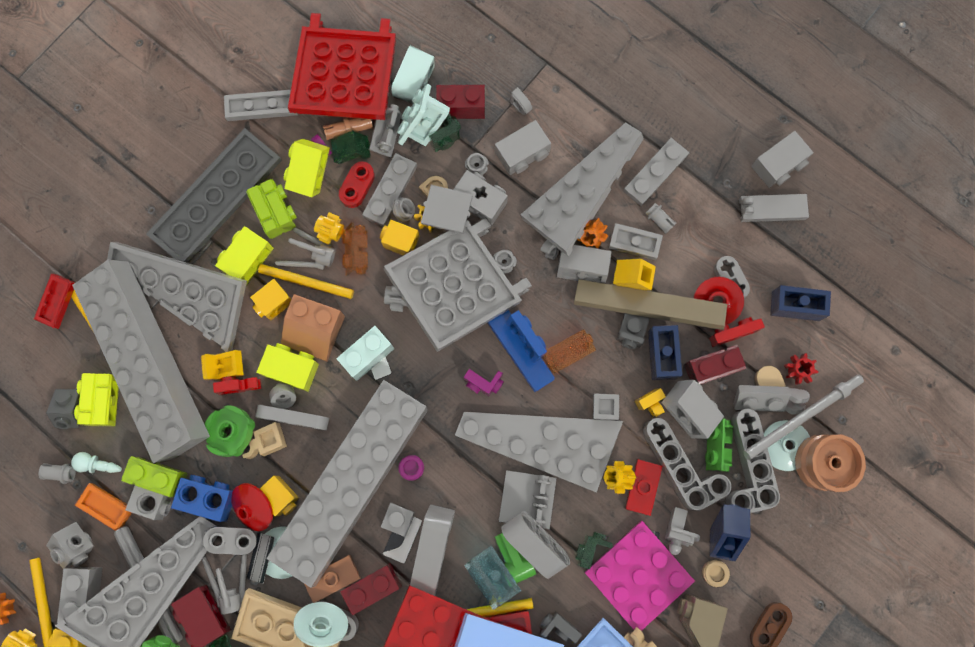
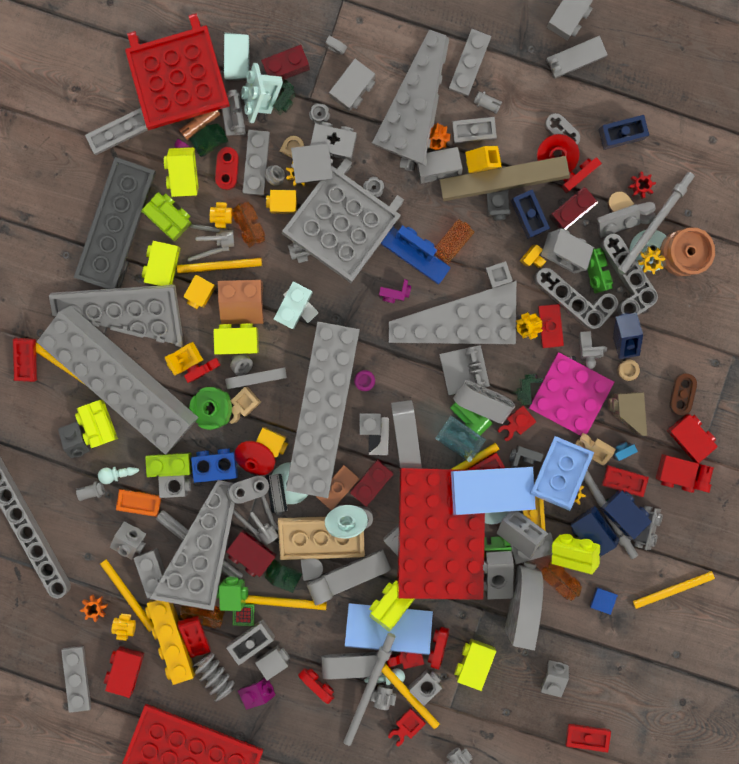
camera: 20 degrees left, 10 degrees up
(569, 584) = (518, 421): none -> red plate
(790, 462) = (646, 258): none -> yellow gear

